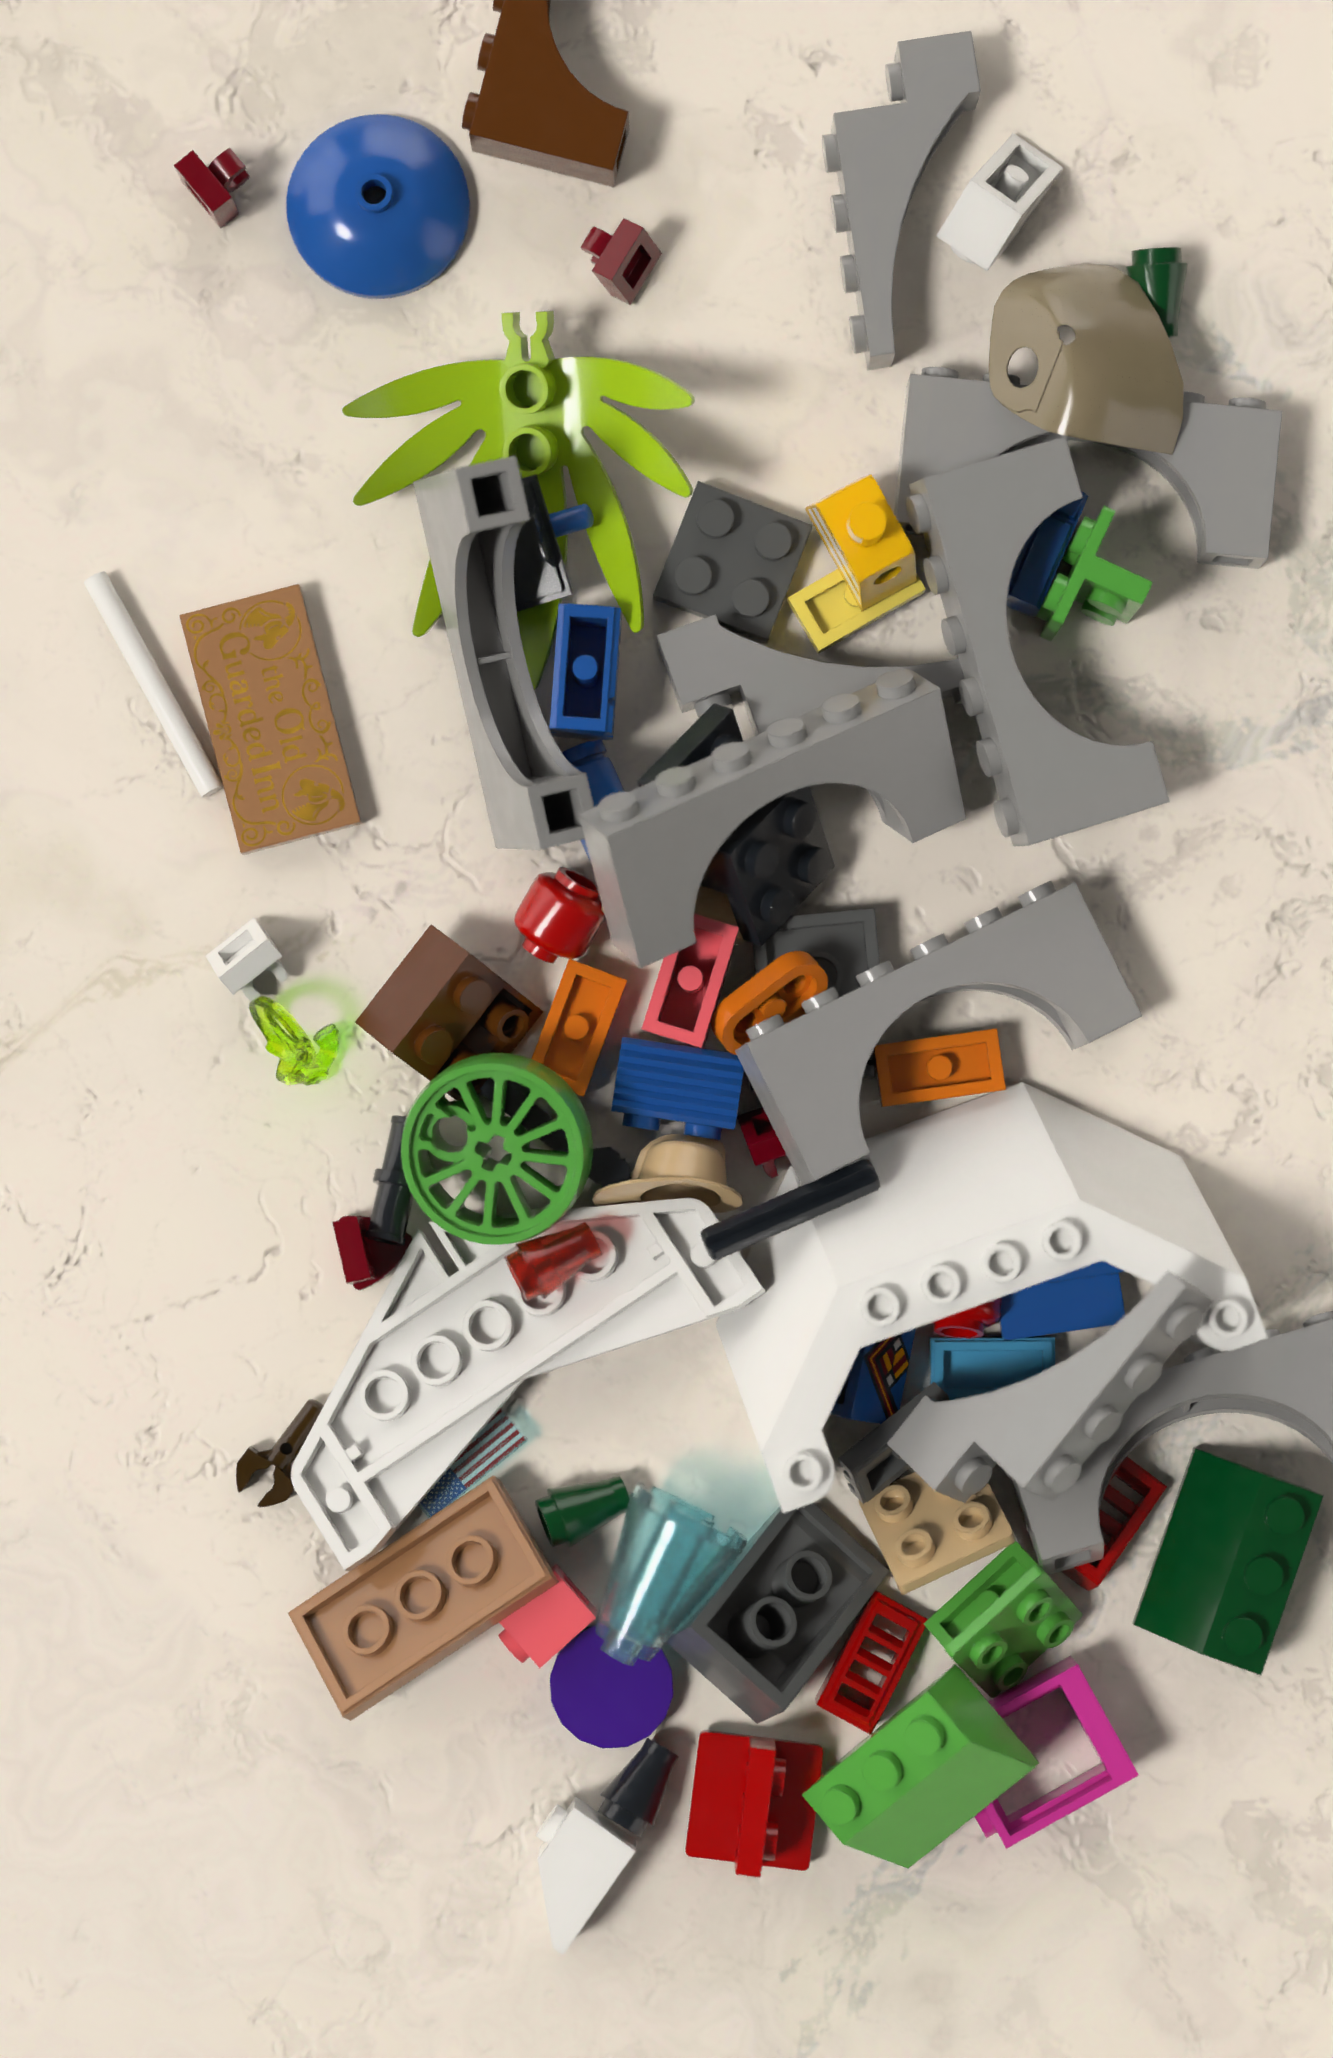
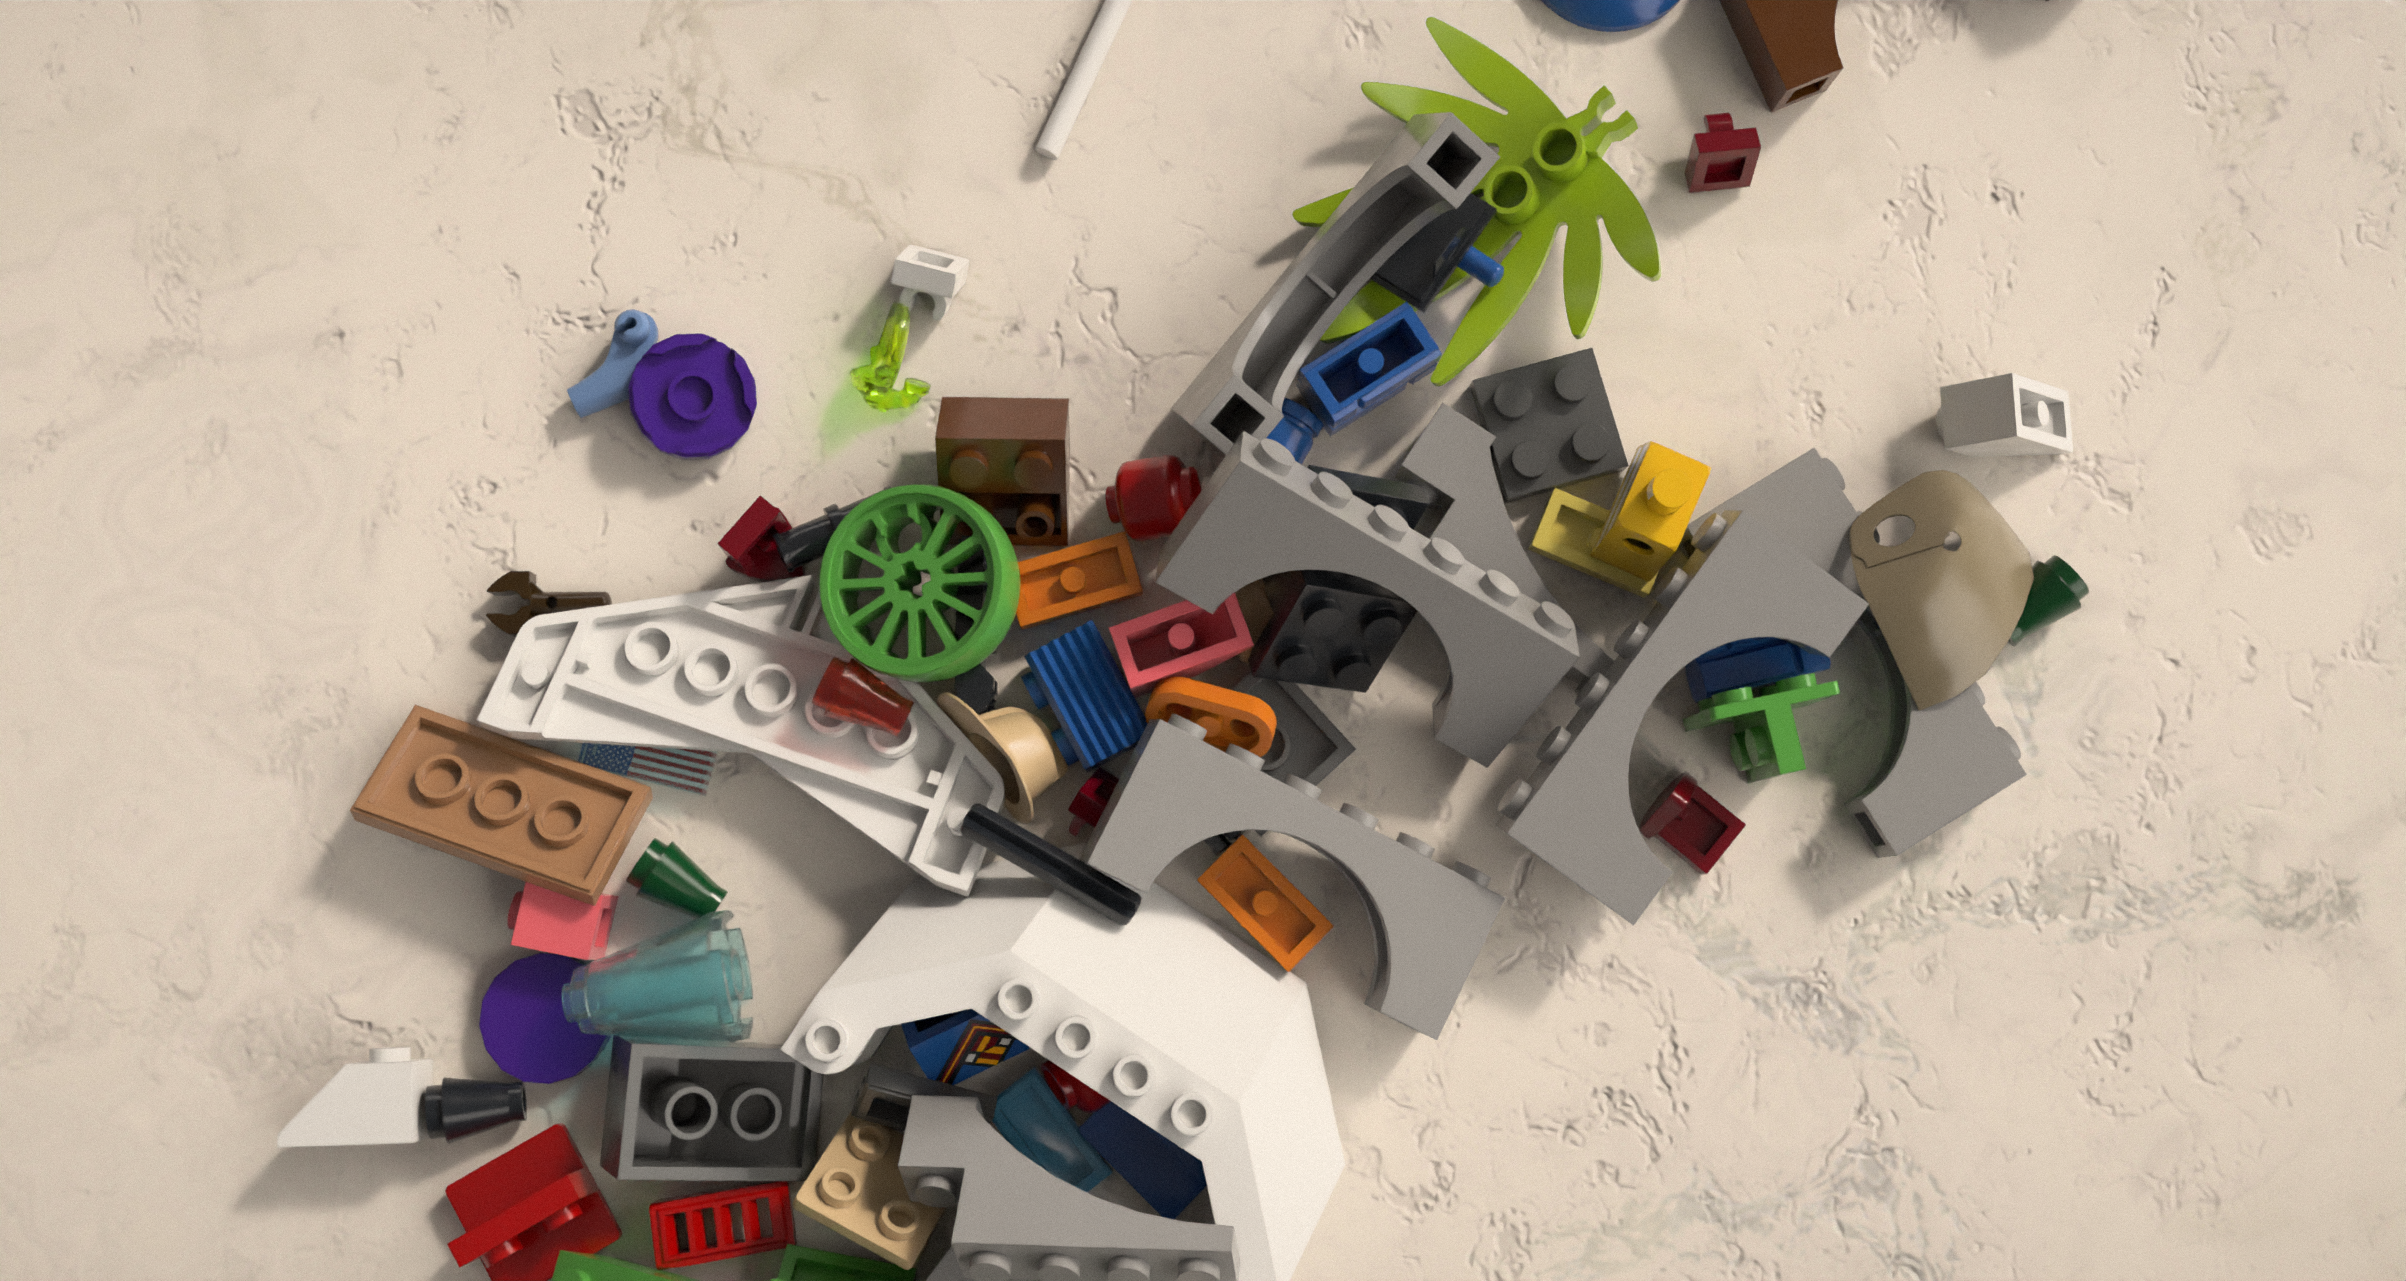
camera: 45 degrees right, 5 degrees down
(137, 1255) = (609, 384): none -> medium blue arm
(203, 1218) = (692, 396): none -> dark purple tile
(270, 719) = (1138, 156): medium nougat tile -> none
(879, 165) = (1961, 303): light grey arch -> none
(1124, 692) = (1691, 823): none -> dark red tile

